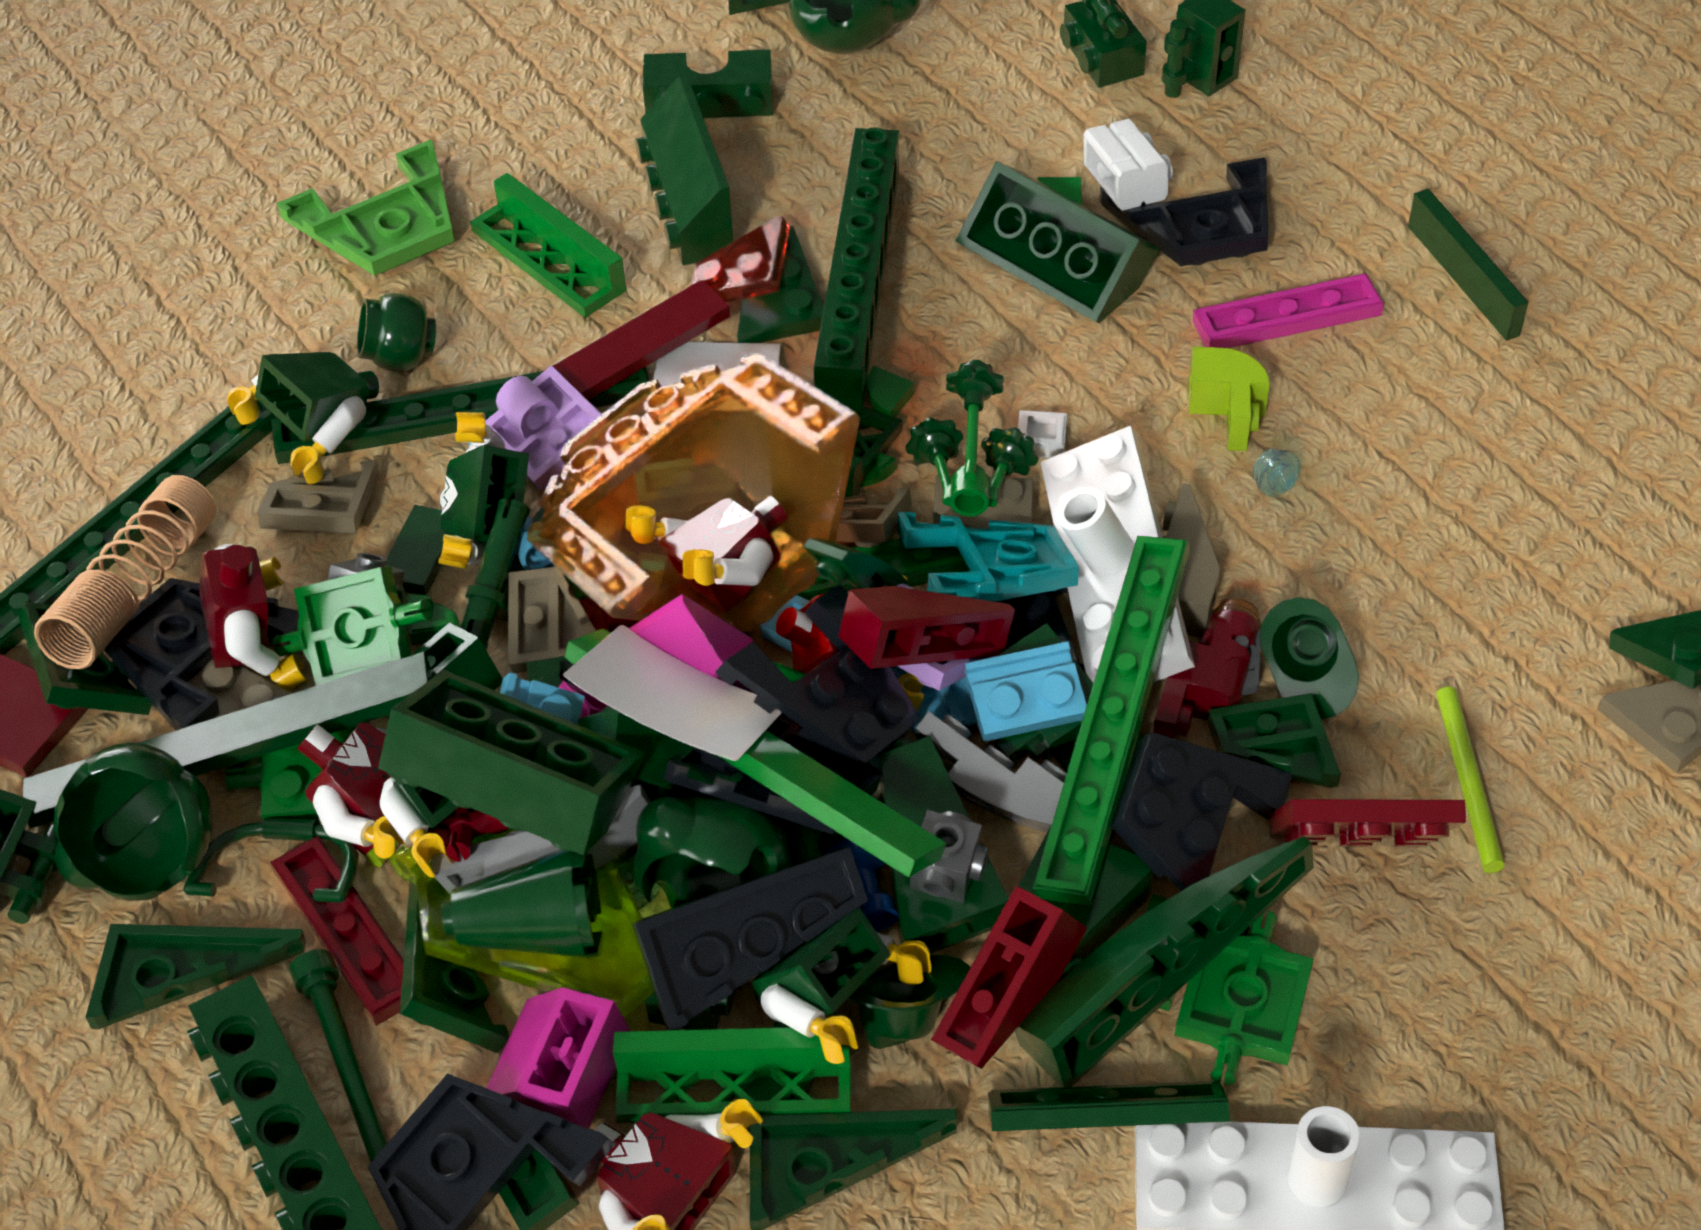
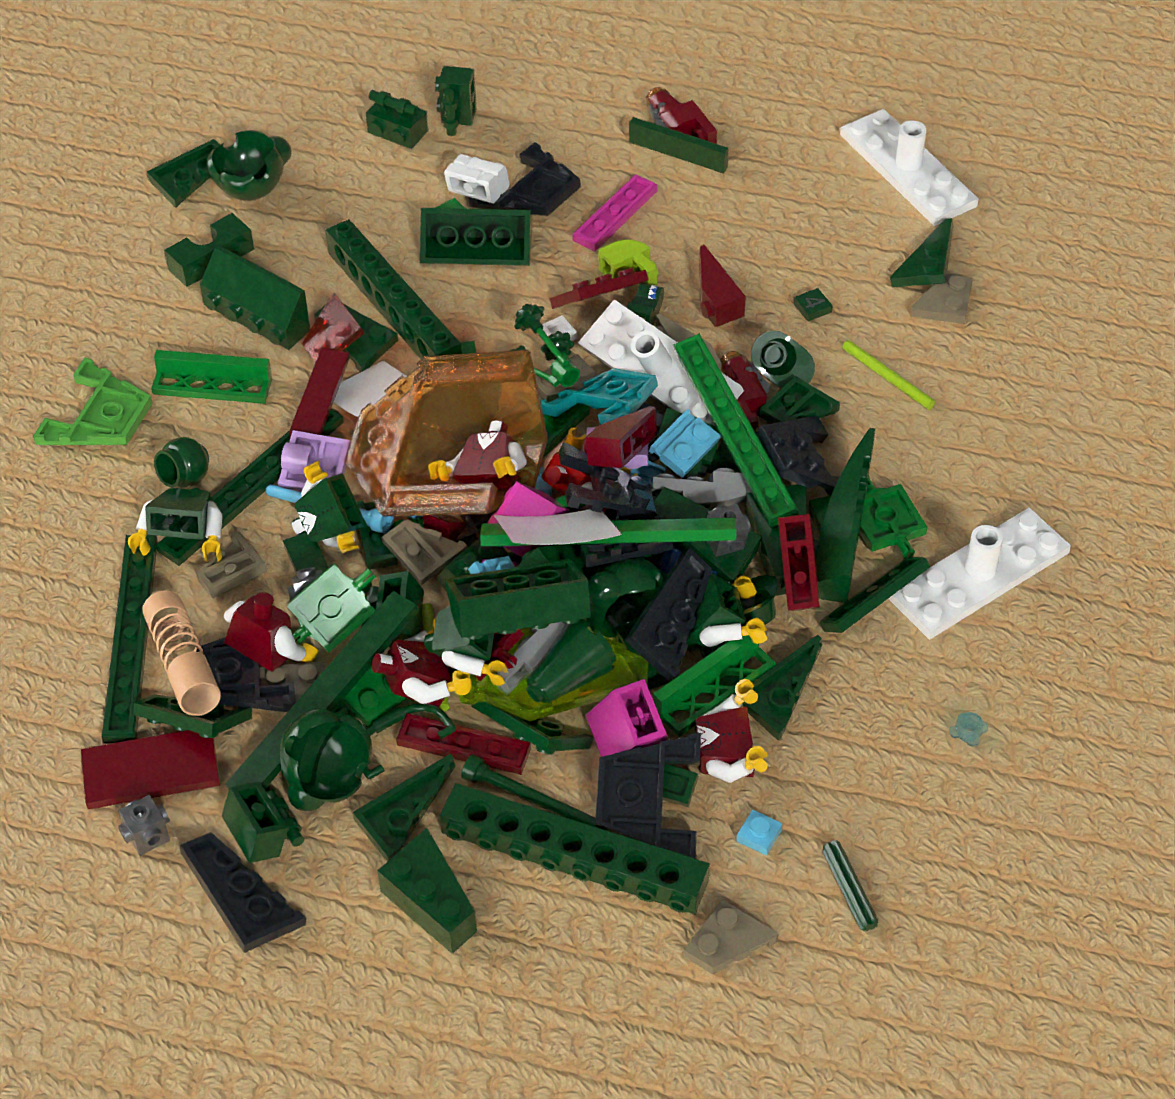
camera: 40 degrees left, 0 degrees up
(78, 1104) = (428, 892): none -> dark green wedge
(487, 592) = (379, 554): dark green pin -> none
(842, 563) = (563, 431): dark green slope -> none
(1153, 400) = (603, 285): none -> dark red wing
(1199, 462) = (647, 302): none -> dark green leg
(1276, 472) = (685, 288): clear light blue plate -> none
(1315, 501) = (720, 296): none -> dark red slope
(1367, 820) = (878, 412): dark red plate -> none
(1452, 603) = (813, 304): none -> dark green tile
(1504, 225) = (679, 116): none -> dark red plate

